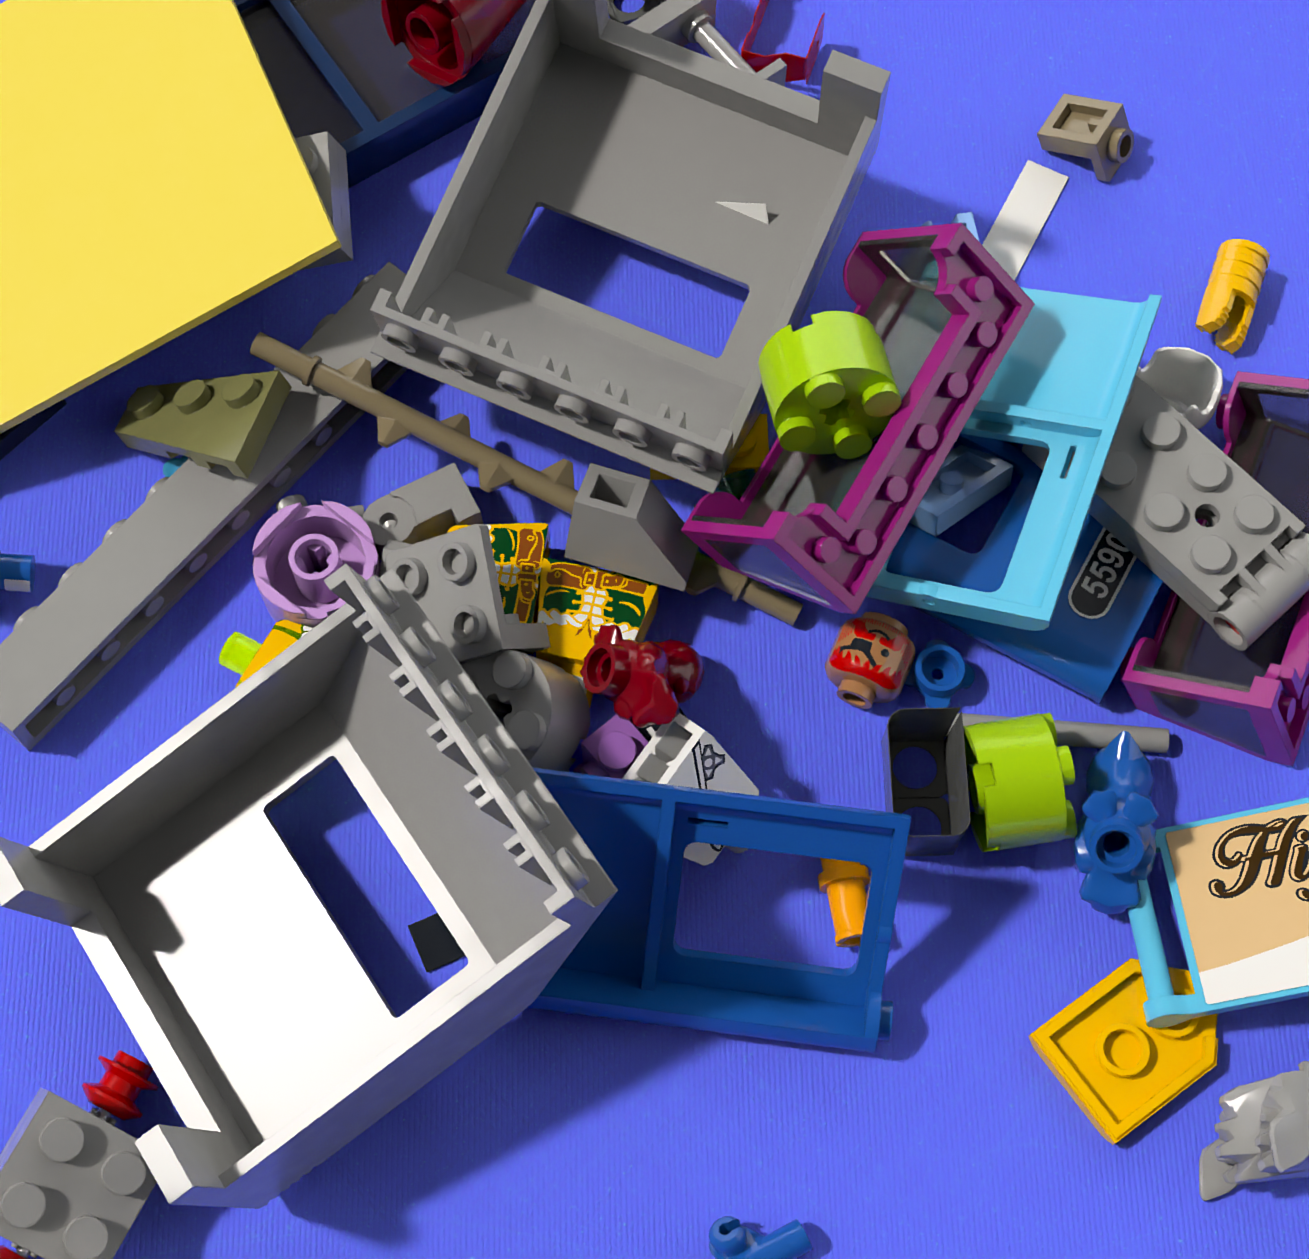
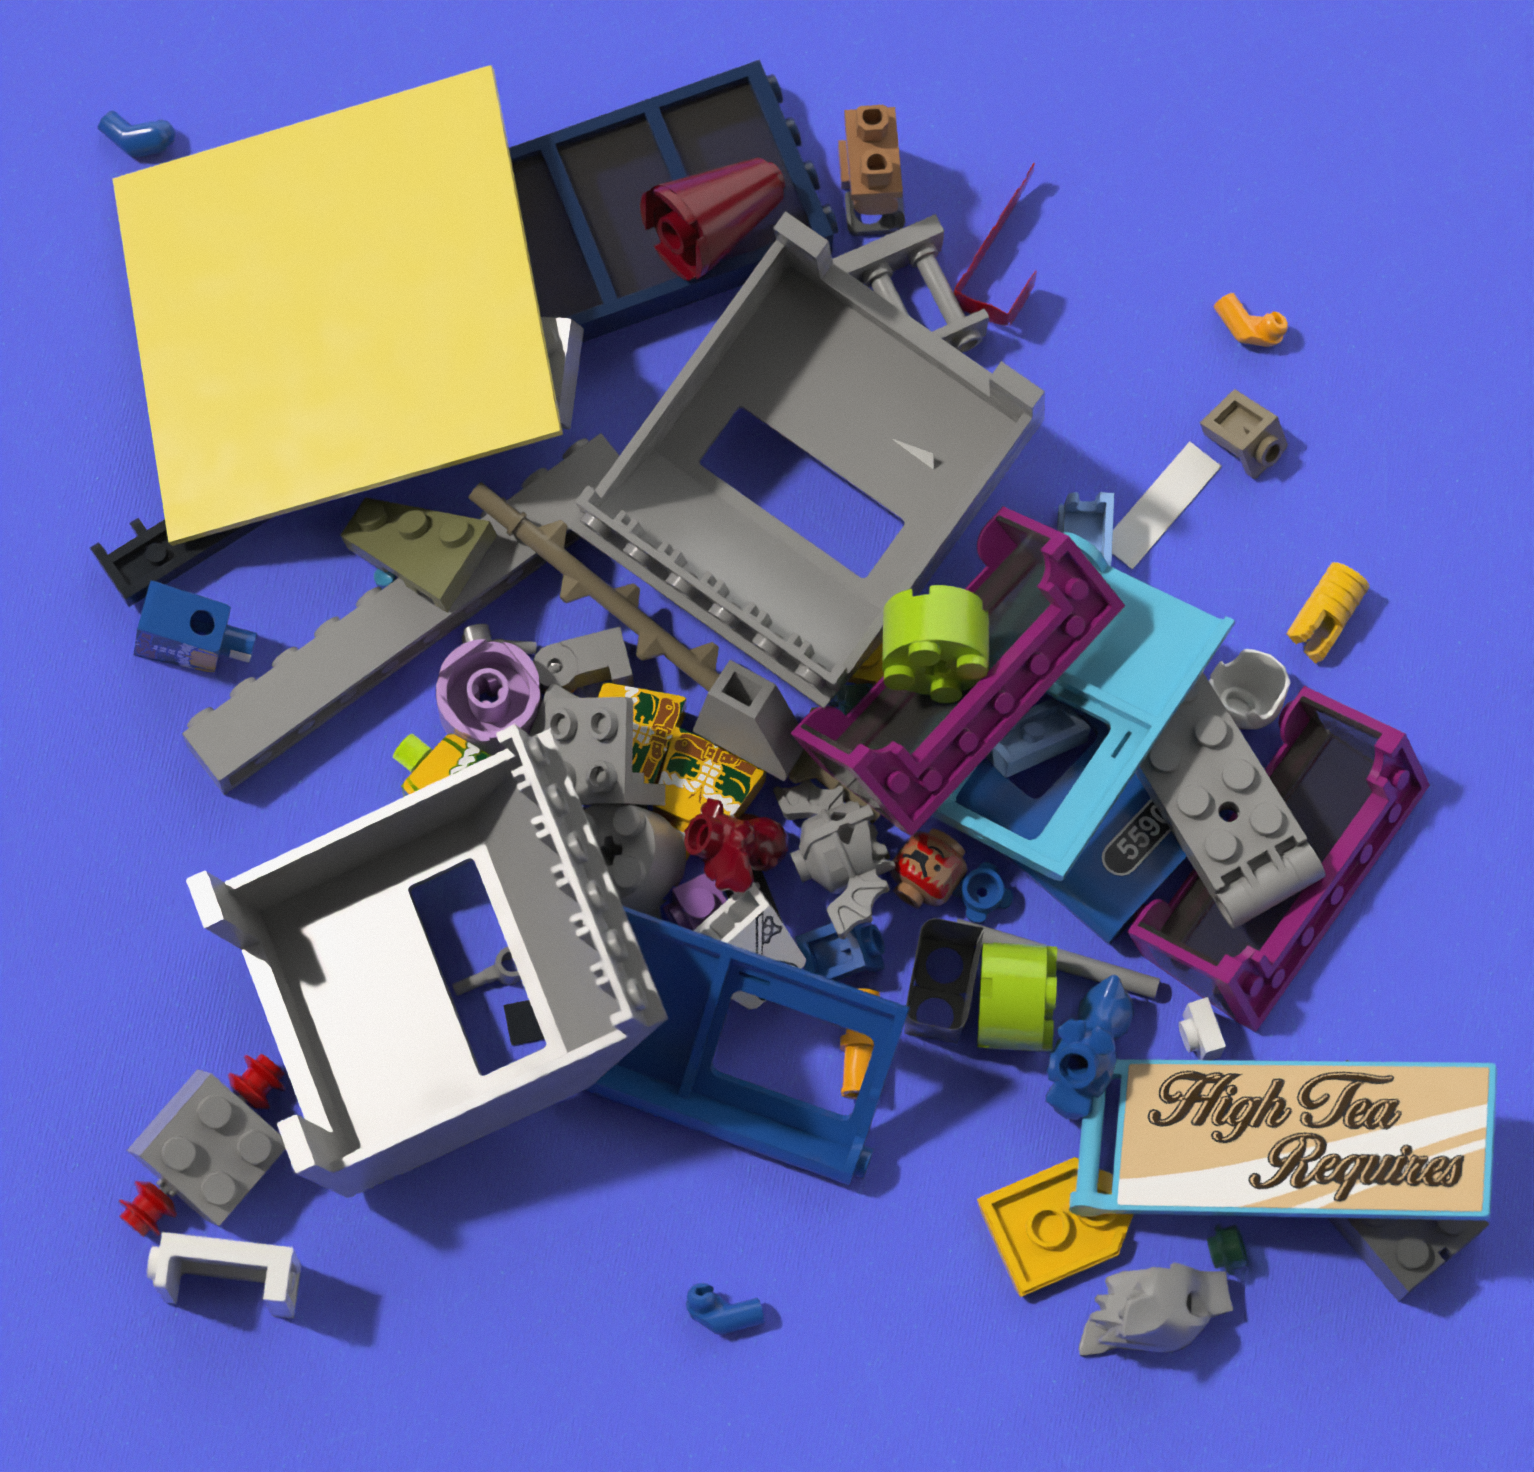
camera: 10 degrees right, 5 degrees up
(384, 893) = (488, 975): none -> light grey hand
(764, 660) = (837, 850): none -> light grey helmet
(797, 768) = (840, 958): none -> blue bracket
(1062, 36) = (1250, 329): none -> light orange arm
(1237, 776) = (1201, 1030): none -> white plate

